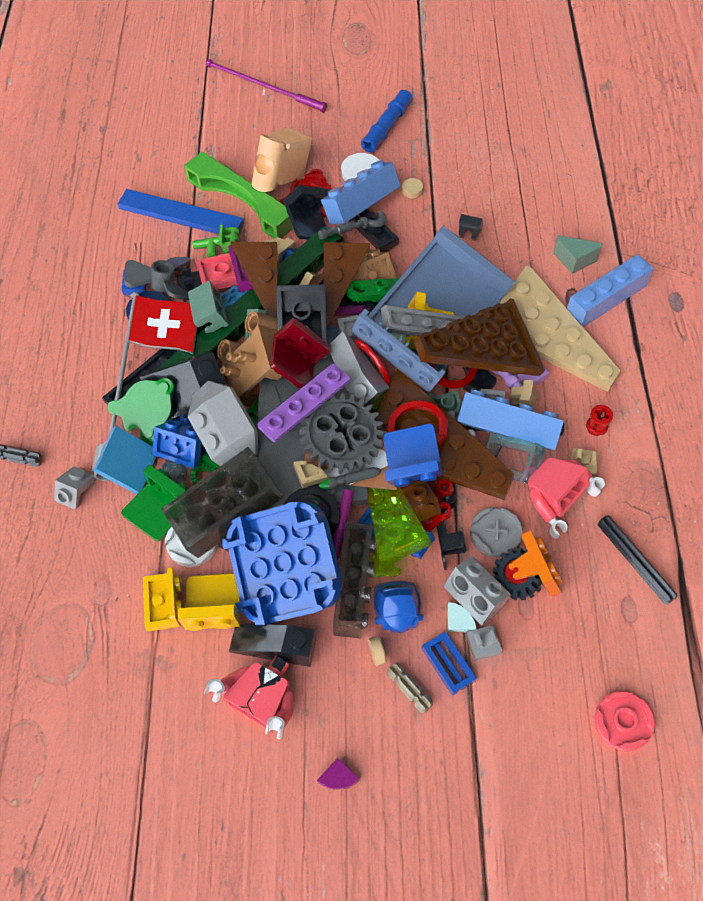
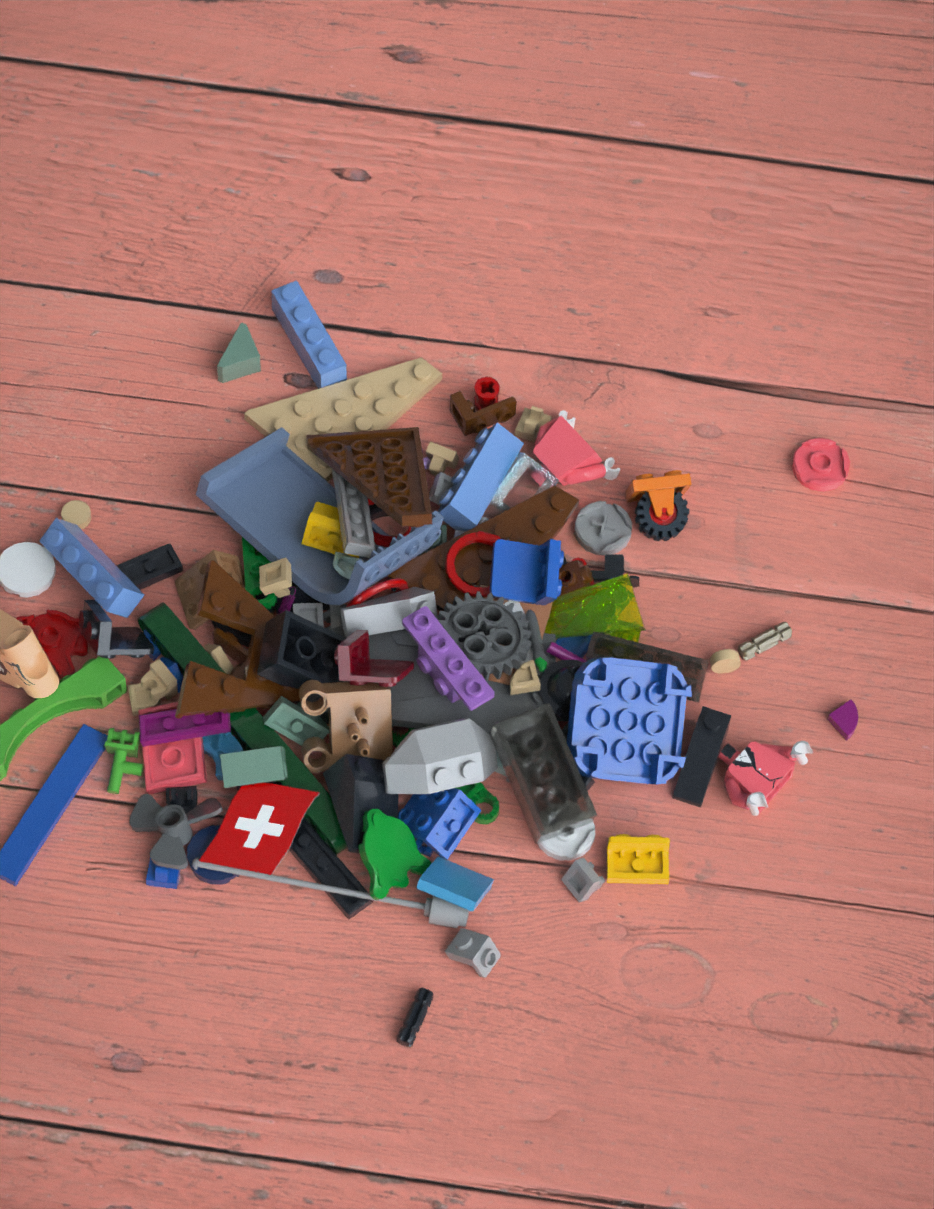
camera: 85 degrees left, 0 degrees up
(141, 557) = (582, 879): none -> light grey tile
(145, 508) = (515, 859): green bracket -> none
(176, 471) = (473, 842): clear light blue tile -> none
(210, 603) = (648, 808): yellow bracket -> none
(363, 222) = (142, 575): dark grey piece -> none
(369, 290) = (276, 578): none -> tan tile
(397, 606) = (678, 630): blue helmet -> none
(459, 619) = (697, 582): light aqua tile -> none
(461, 684) = (736, 609): blue tile -> none
(470, 223) = (162, 460): black tile -> none
(476, 590) = (675, 555): light grey brick -> none
(484, 643) = (726, 565): light grey tile -> none
(572, 414) = (472, 421): none -> reddish brown bracket
(637, 560) = (655, 407): black axle -> none

